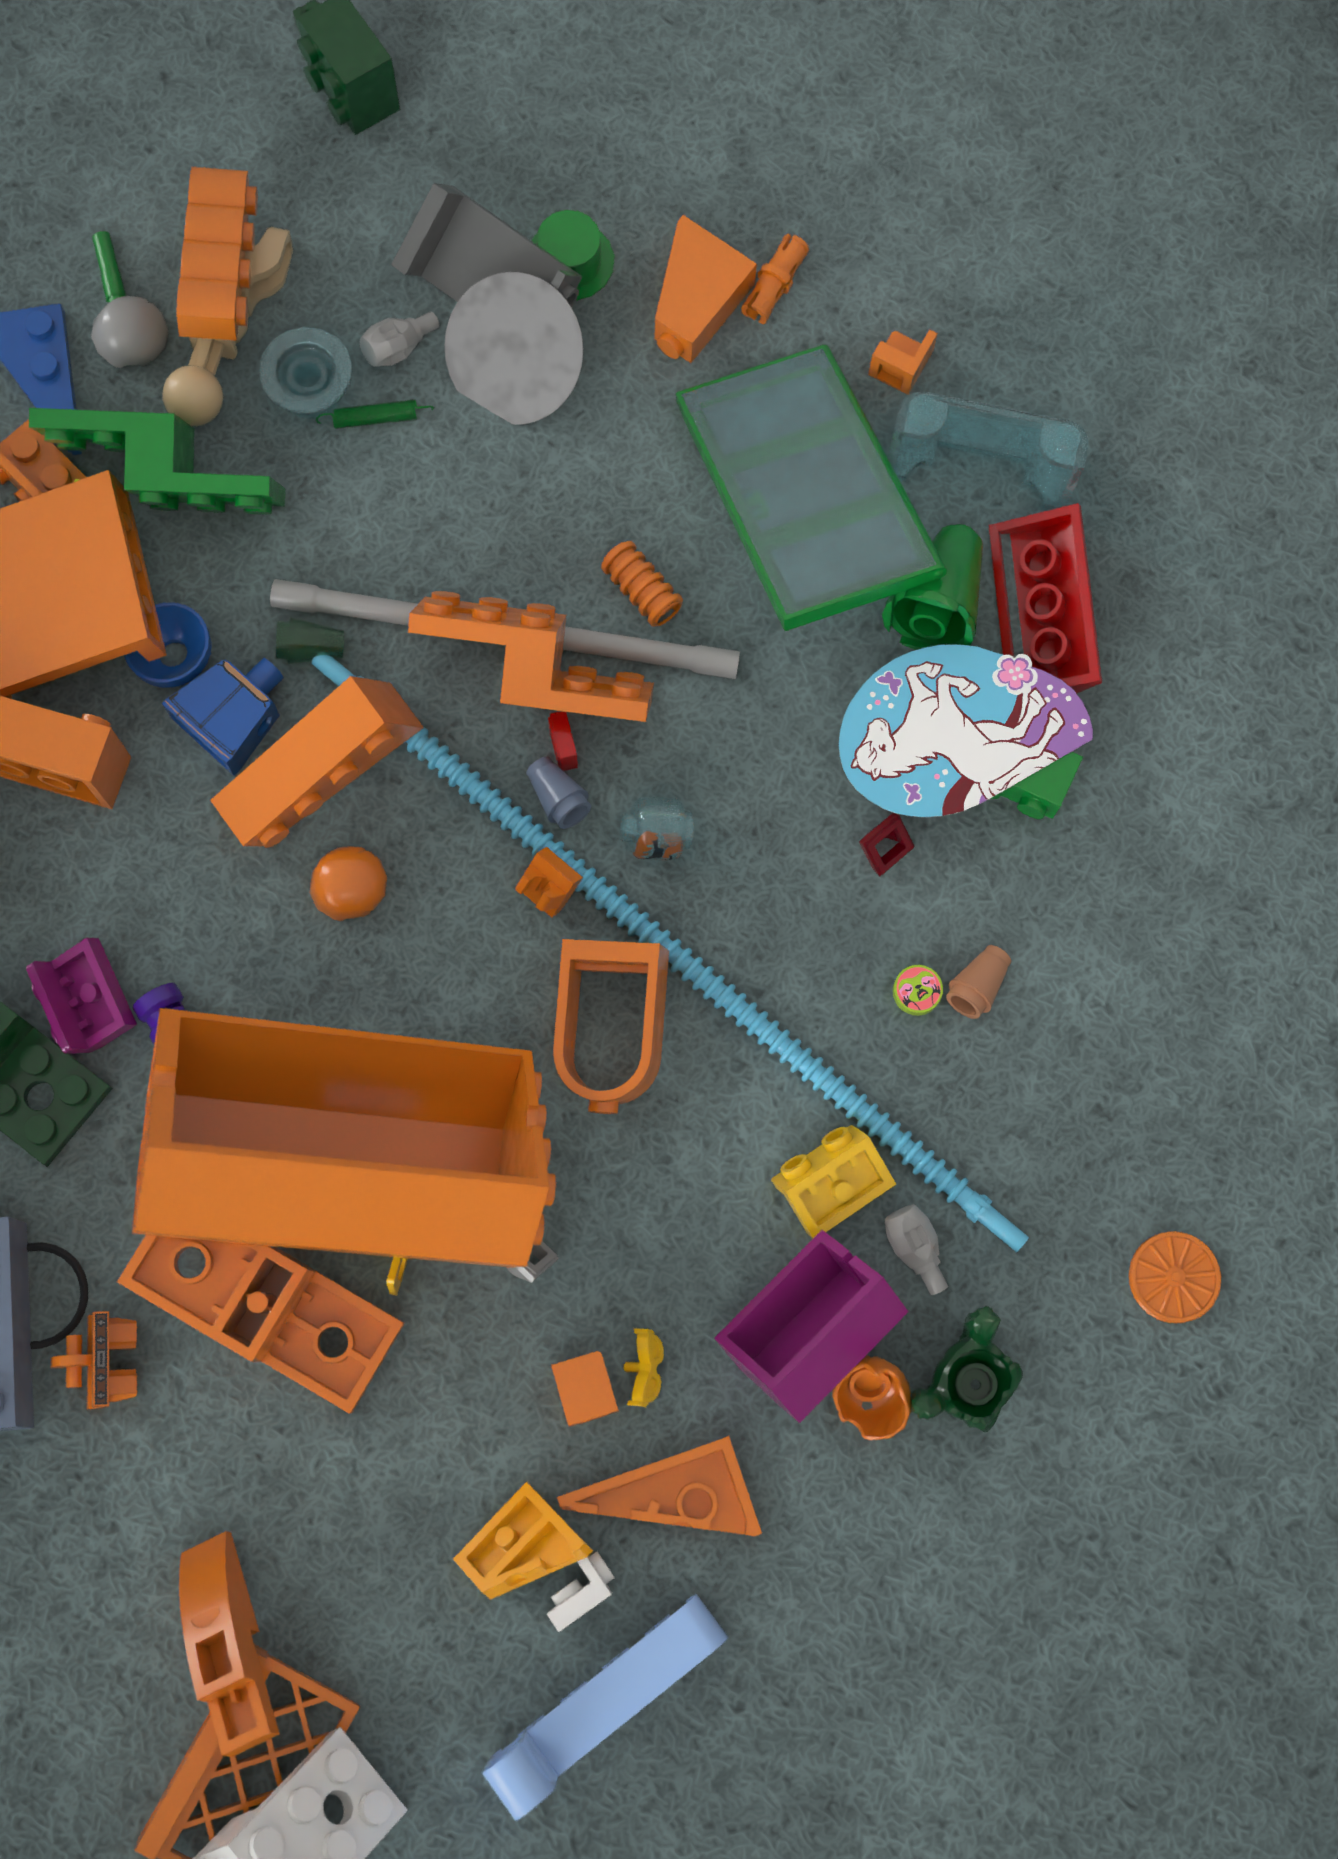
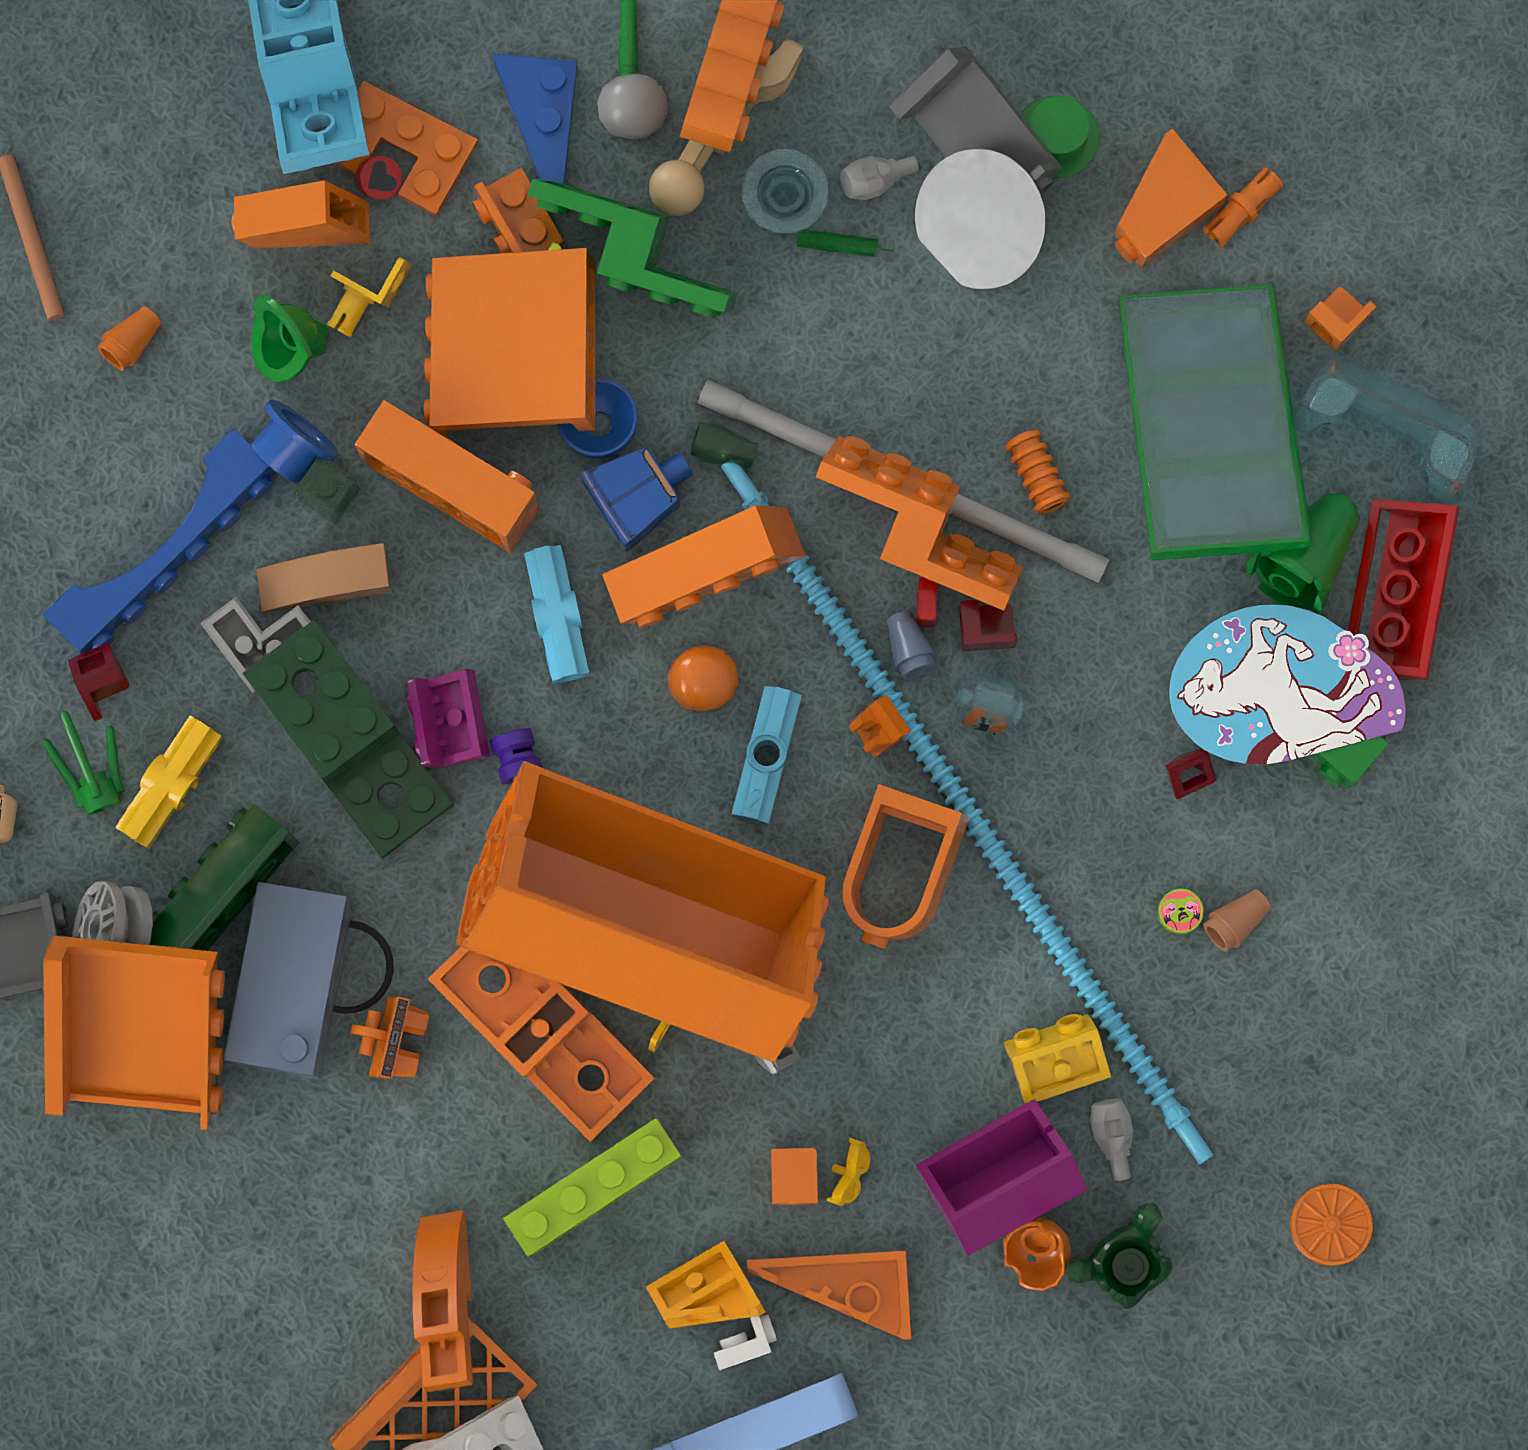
camera: 20 degrees right, 5 degrees up
(173, 856) = (556, 614): none -> medium azure piece
(363, 1466) = (592, 1188): none -> lime brick
(436, 973) = (774, 728): none -> medium azure piece
(631, 752) = (986, 627): none -> dark red panel

